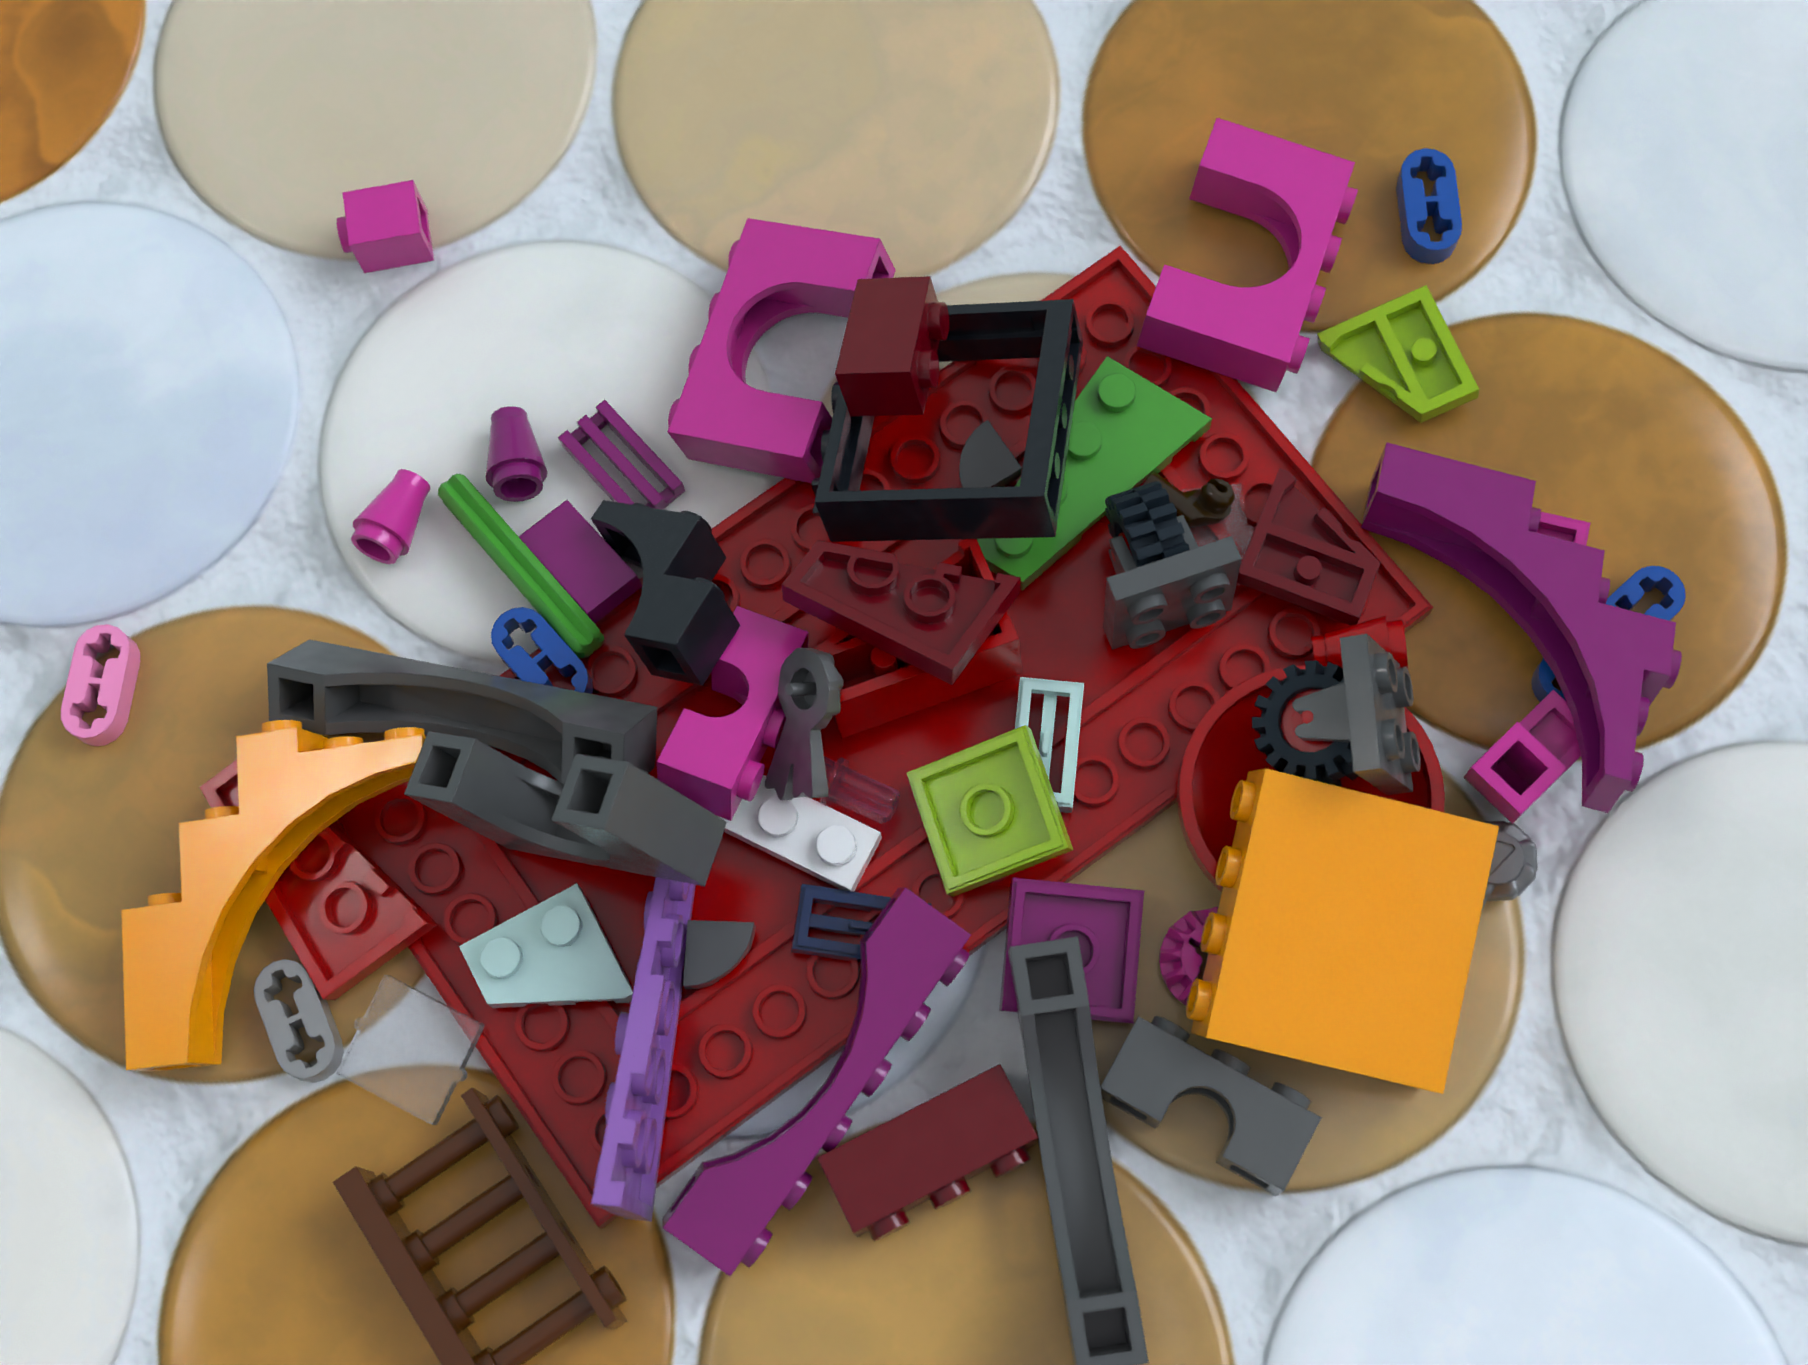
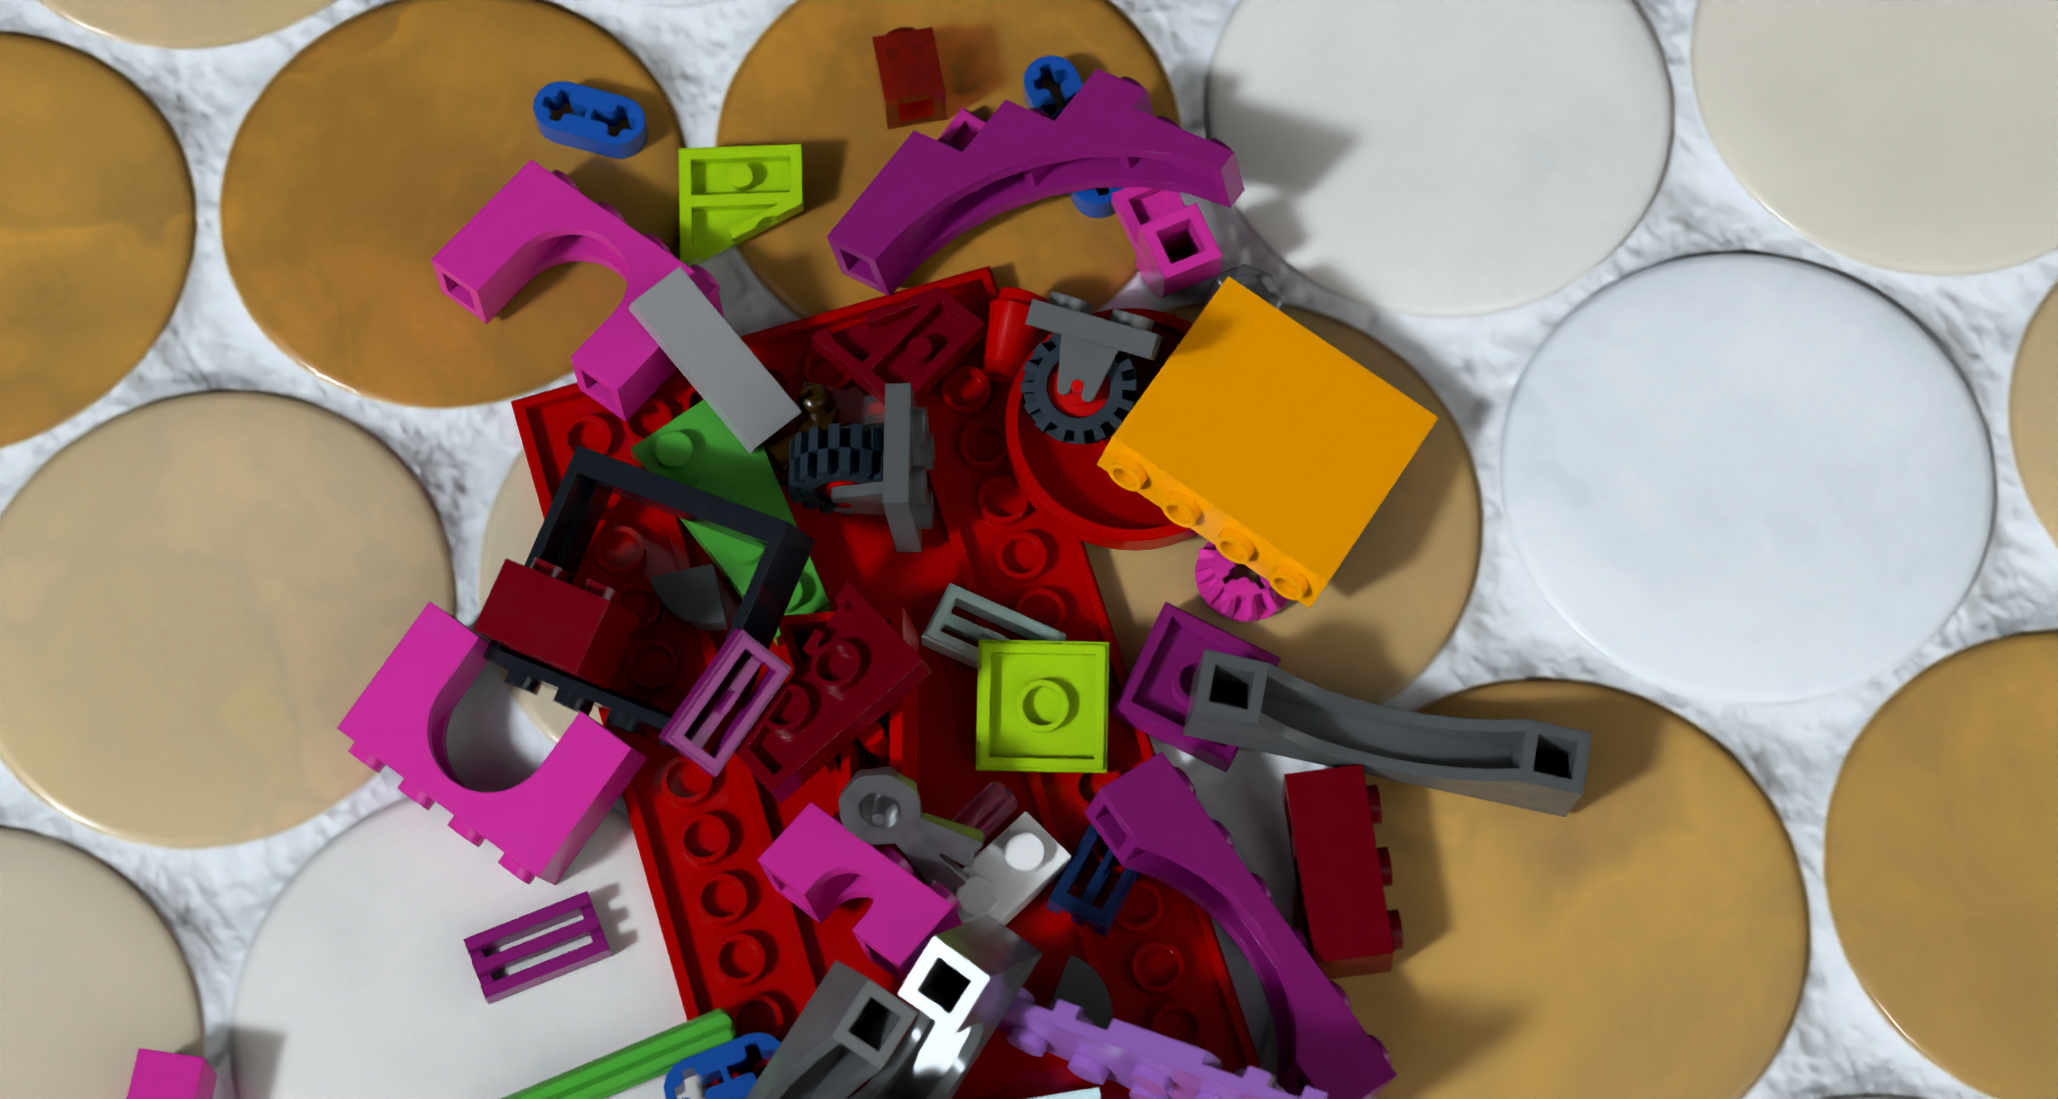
camera: 75 degrees left, 5 degrees down
(514, 459) = (487, 1047): magenta cone -> none
(581, 561) = (630, 1011): magenta tile -> none
(681, 613) = (676, 903): black arch -> none
(910, 522) = (706, 686): none -> magenta tile
(1212, 387) = (715, 360): none -> light grey tile
(1264, 1124) = (1413, 580): dark grey arch -> none
(1598, 461) = (909, 77): none -> clear red brick

